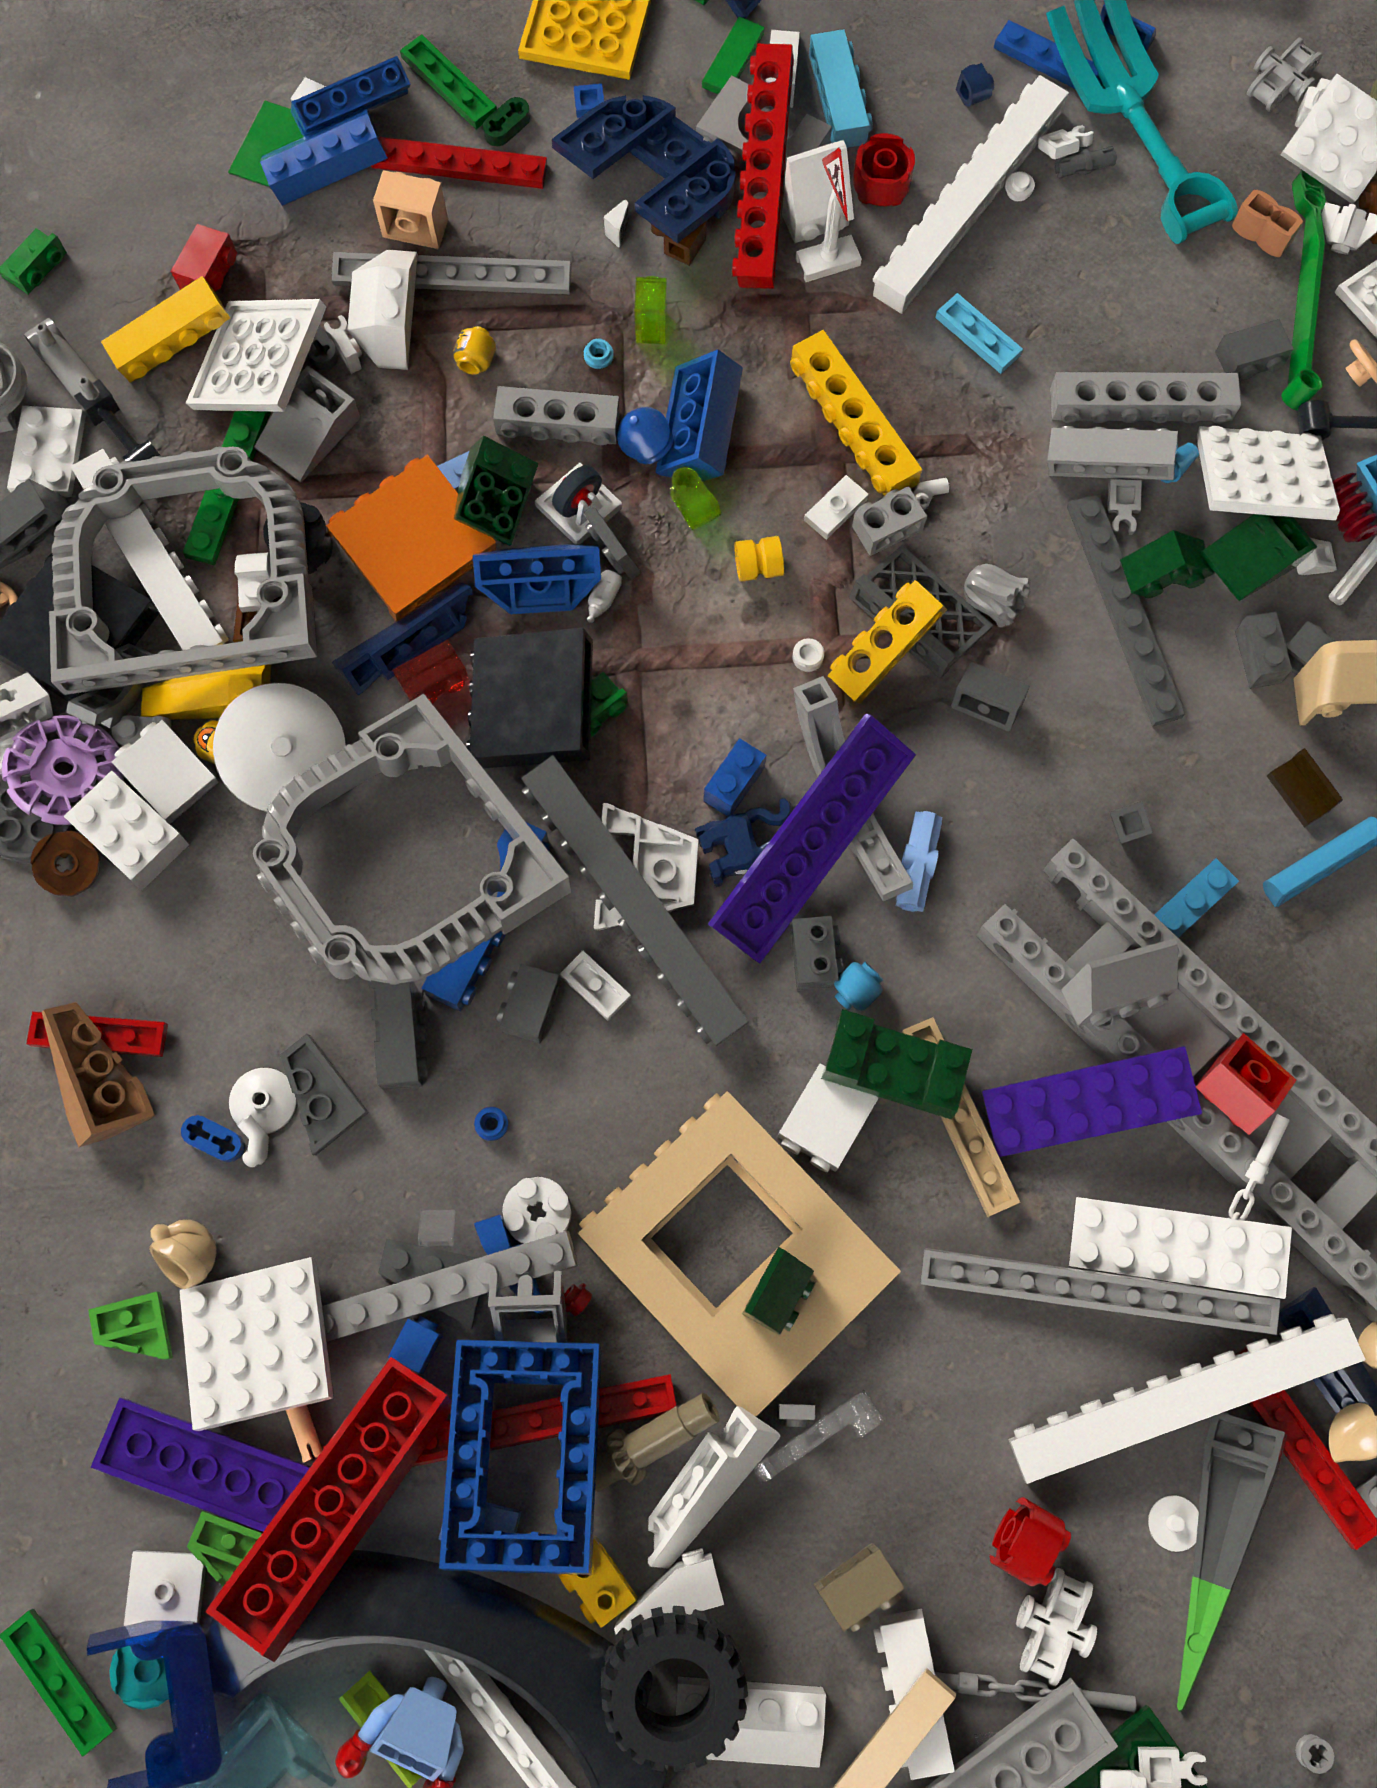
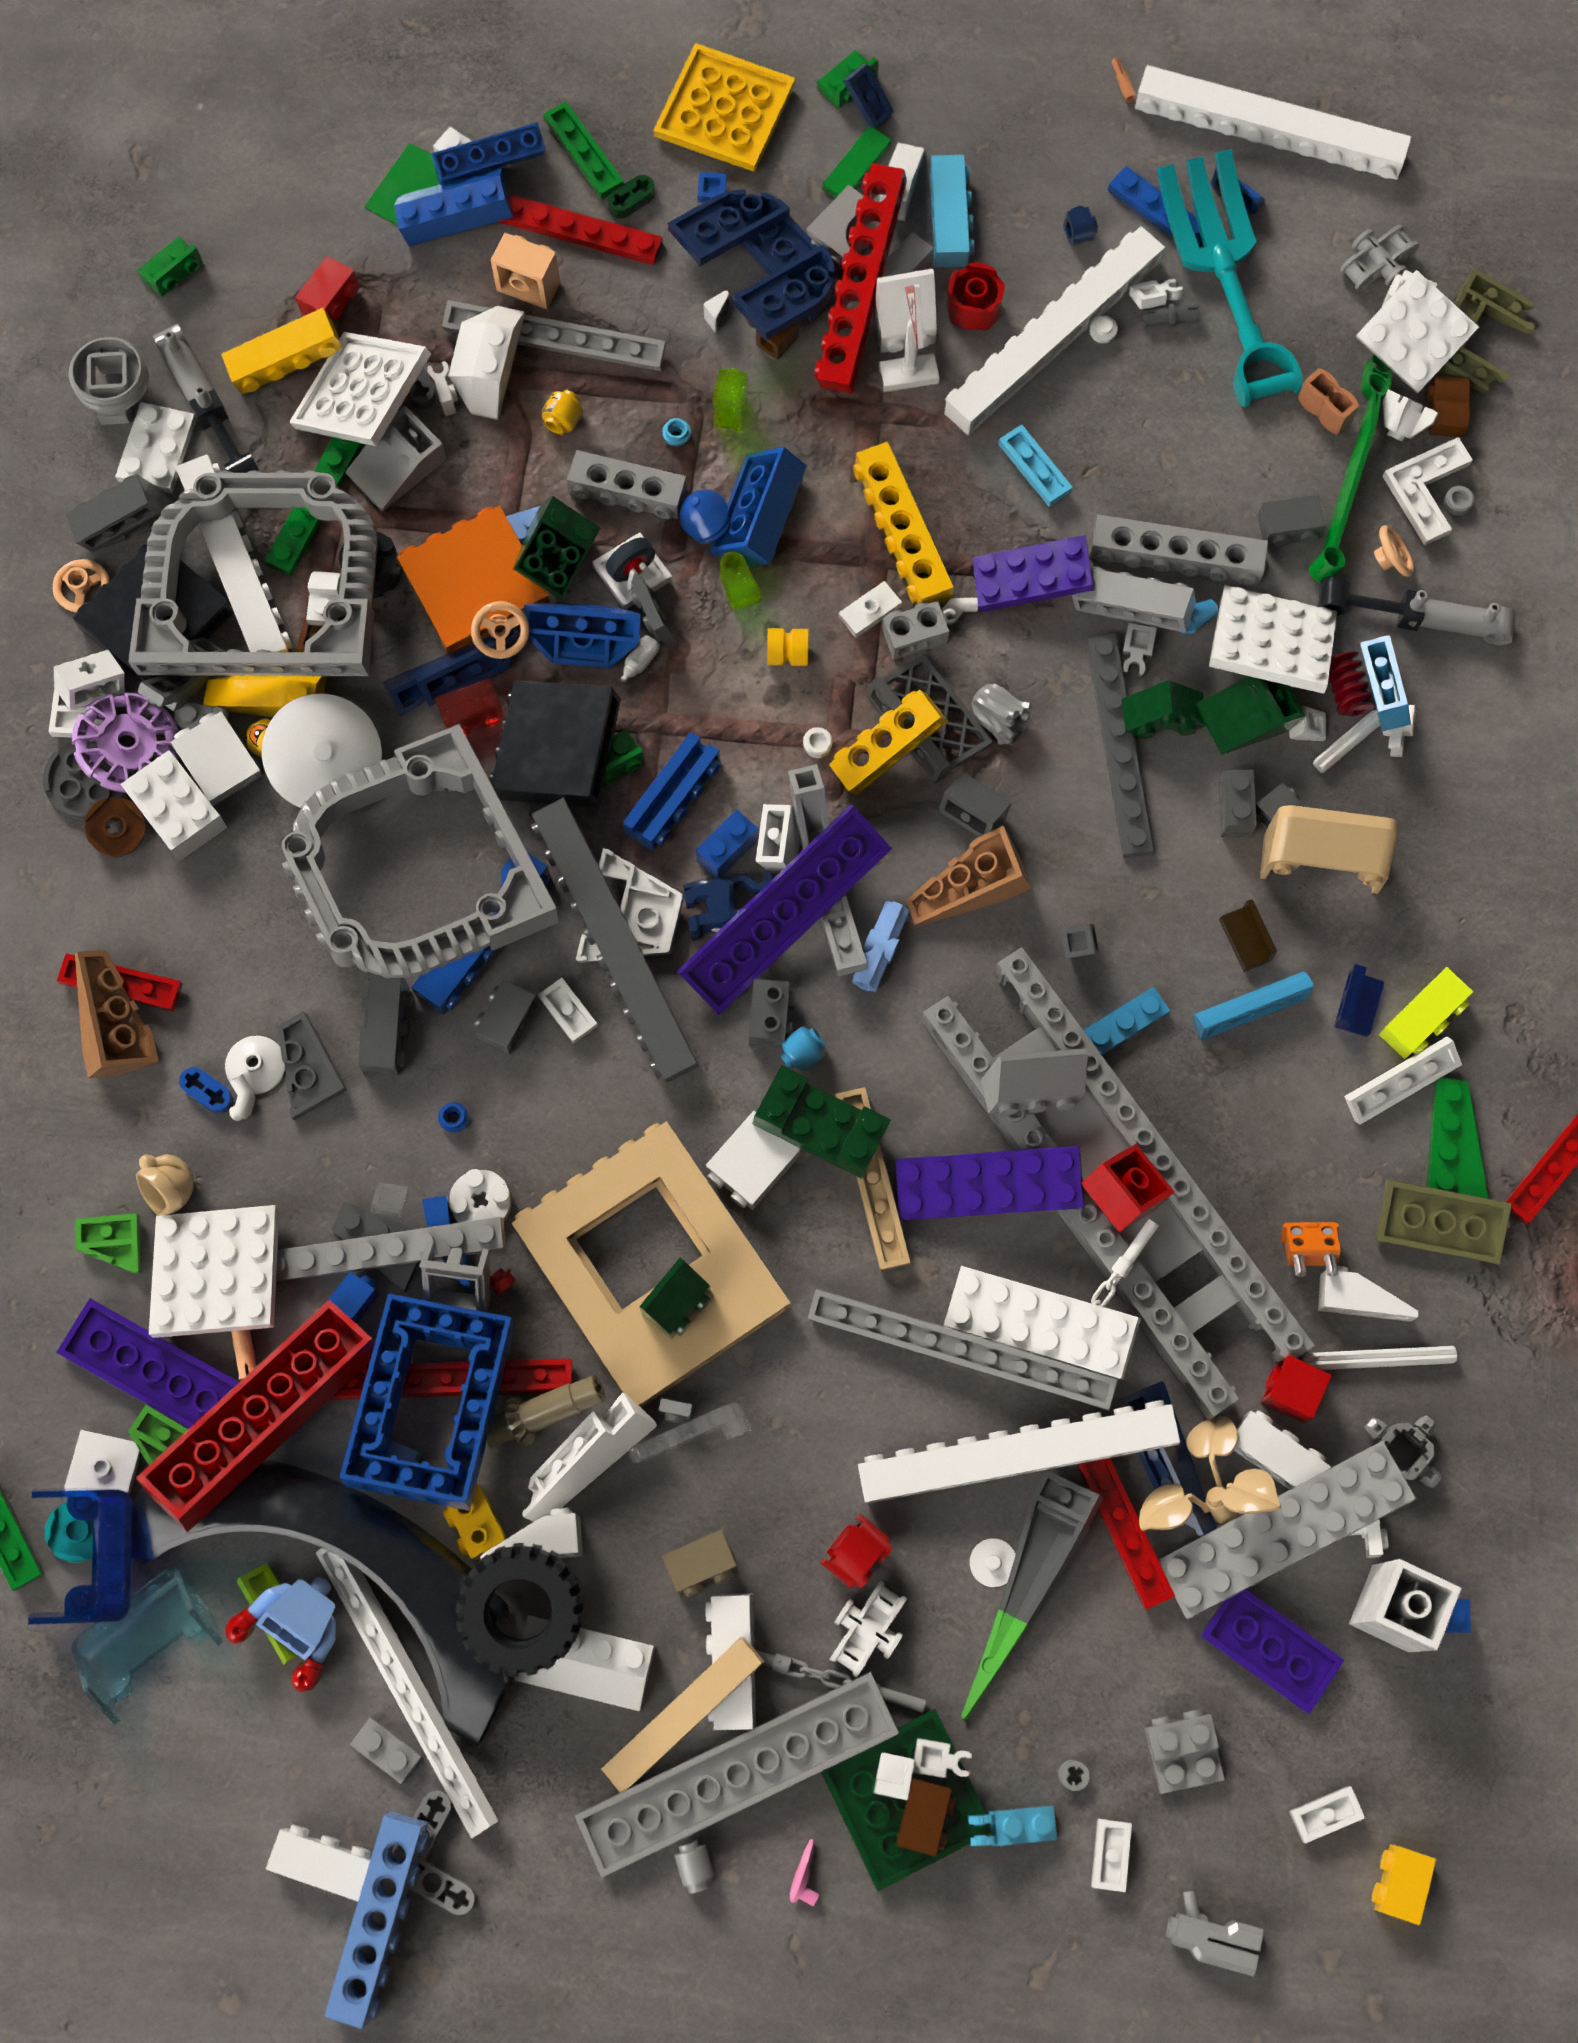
camera: 10 degrees right, 0 degrees up
(447, 575) = (495, 620): none -> light nougat piece
(664, 731) = (671, 792): none -> blue brick
(788, 762) = (777, 837): none -> white brick
(1001, 443) = (1032, 573): none -> dark purple plate
(1006, 773) = (978, 878): none -> medium nougat wedge

